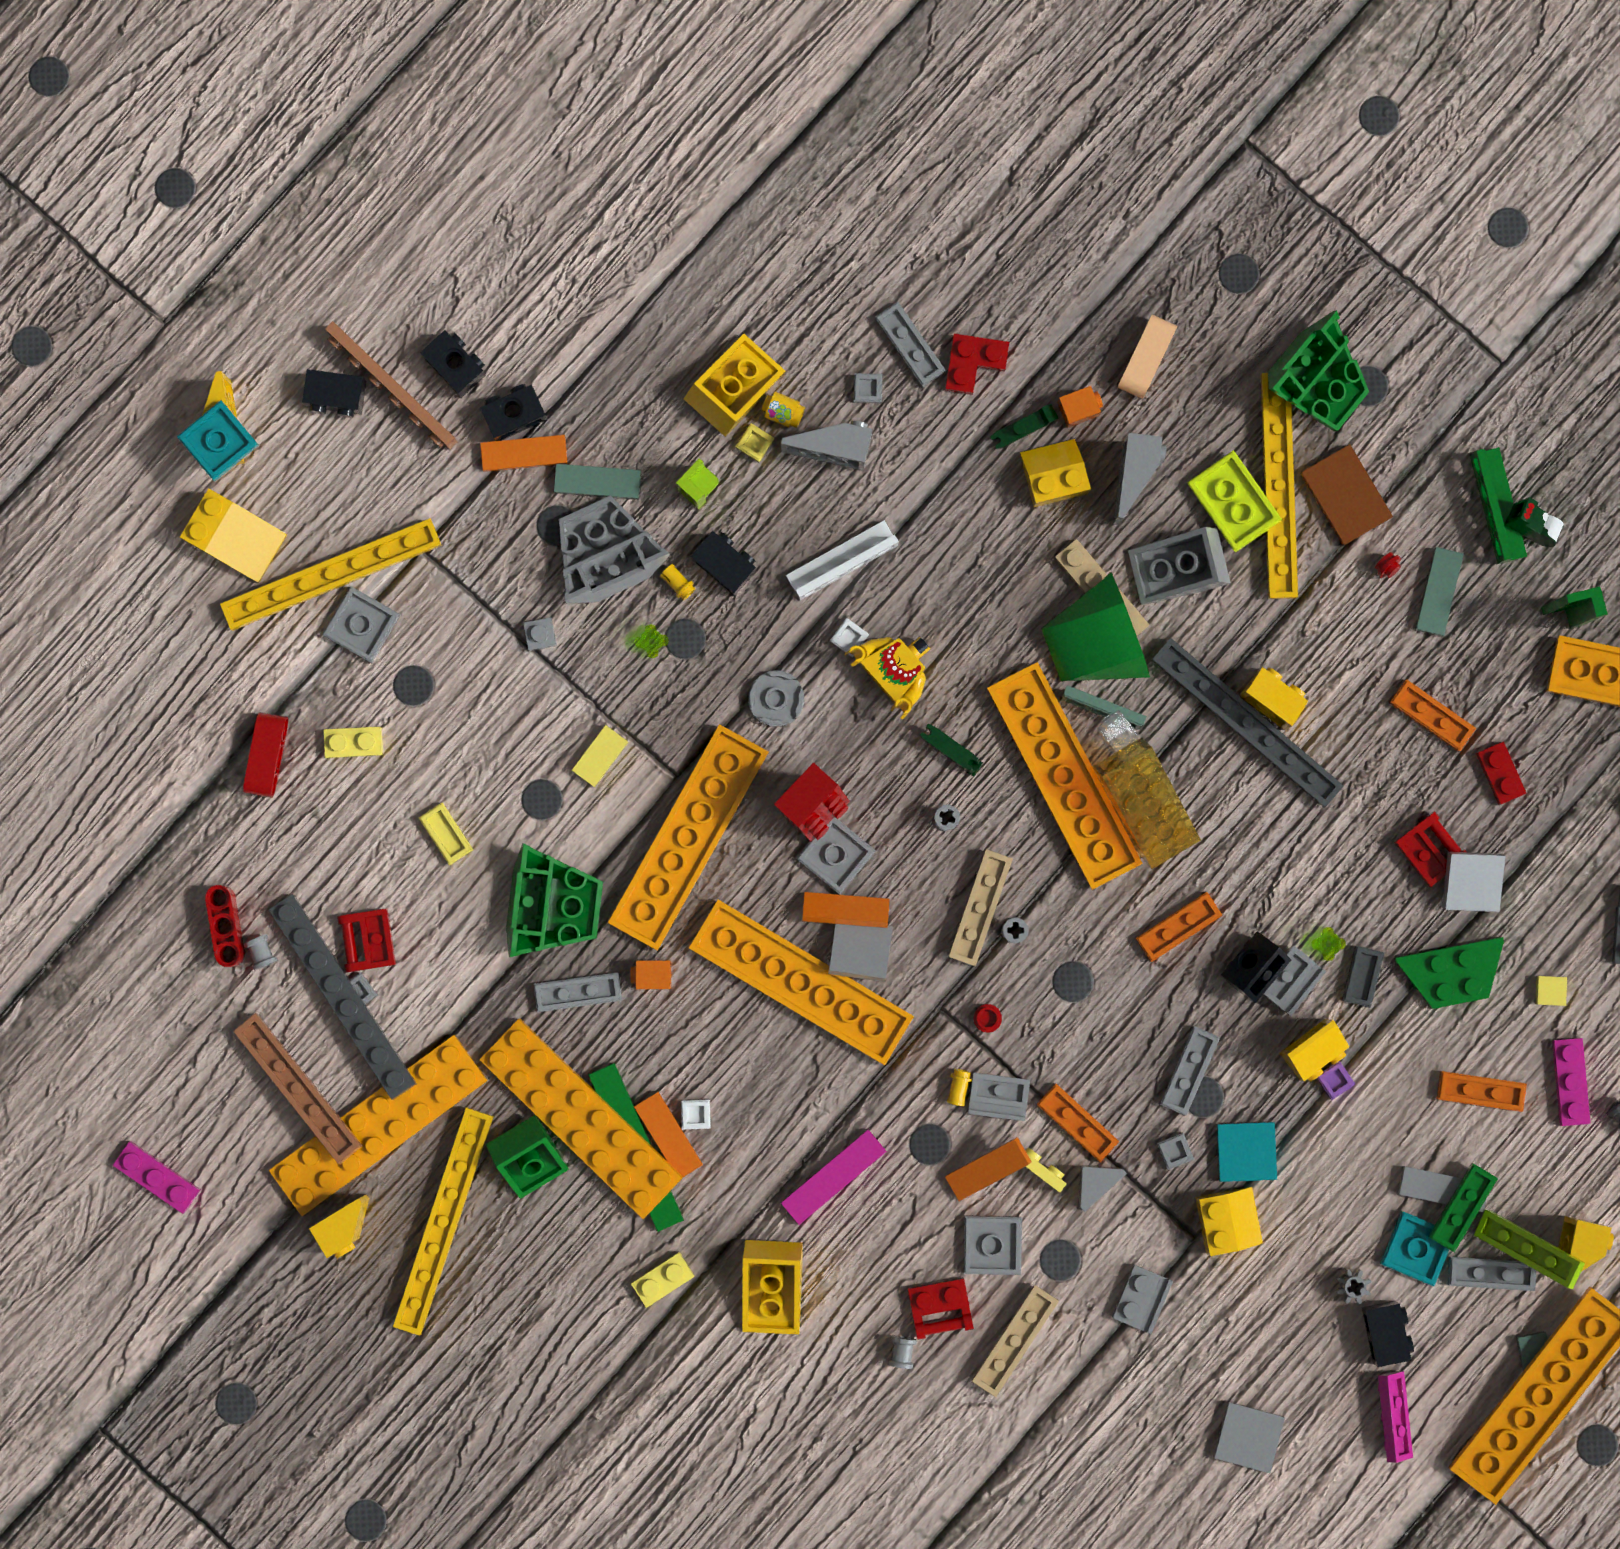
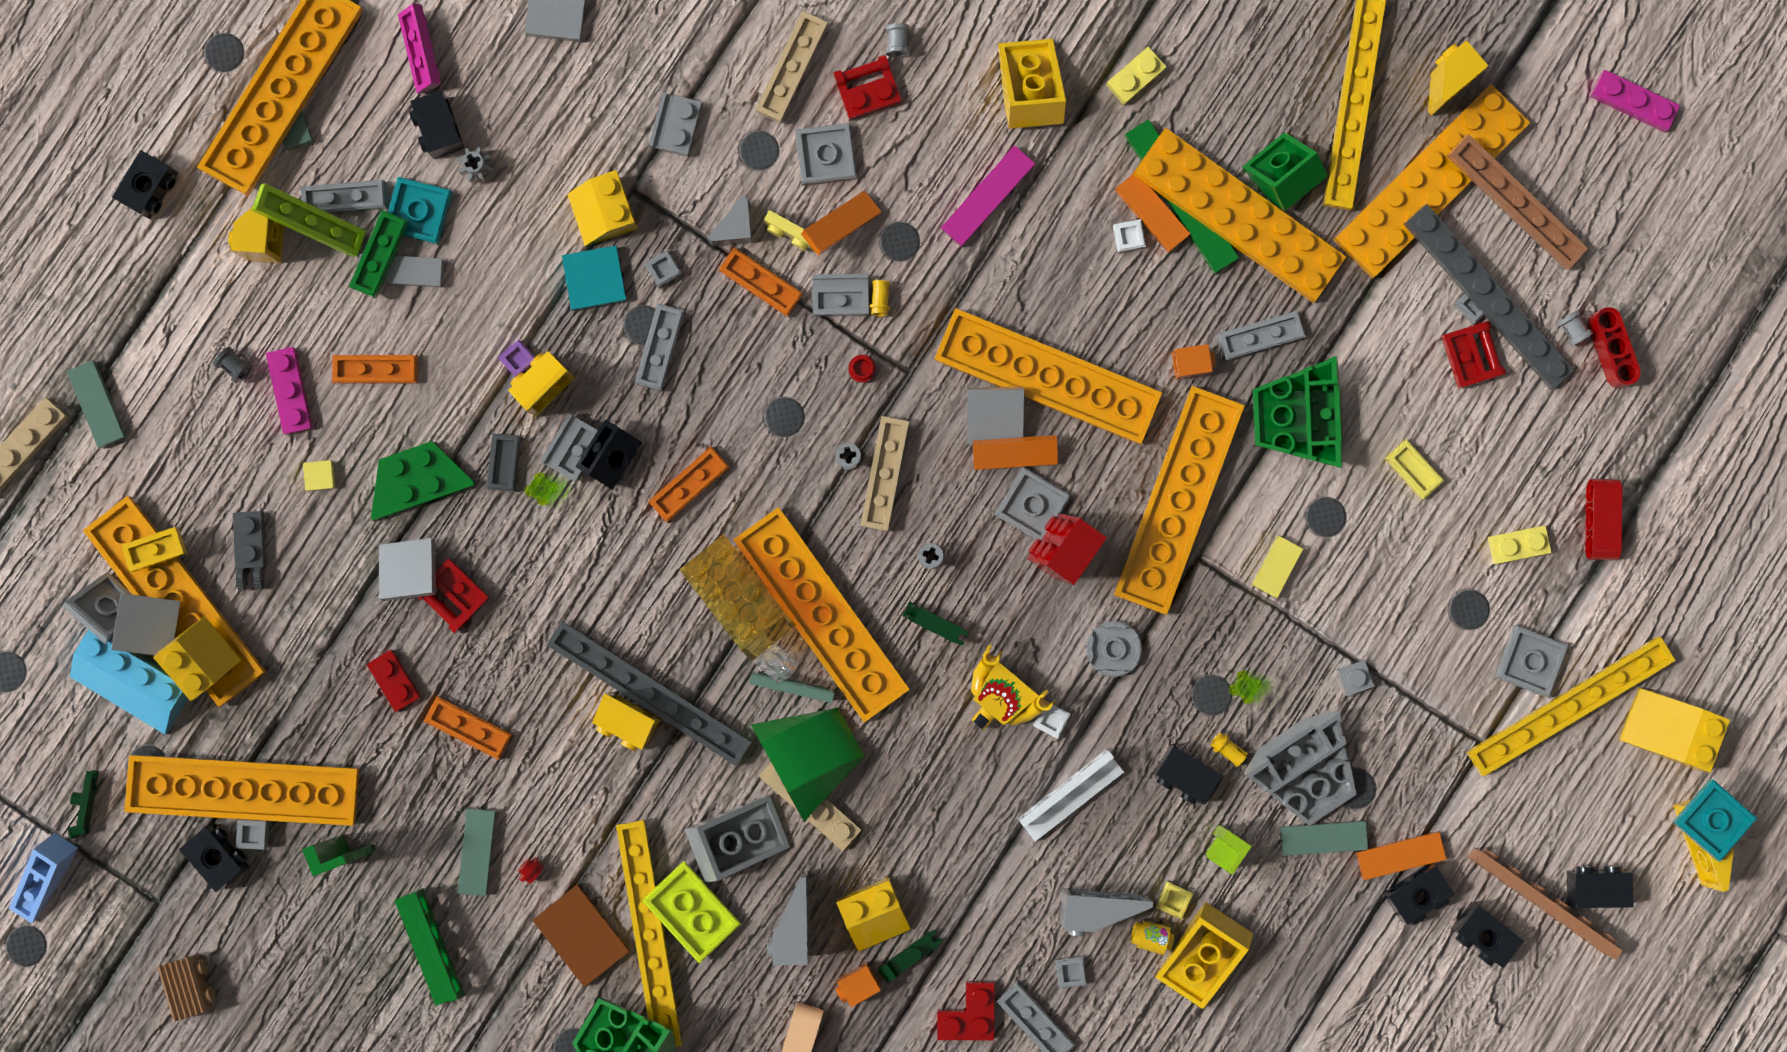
camera: 170 degrees right, 0 degrees up
(1534, 523) = (390, 934): dark green leg -> none

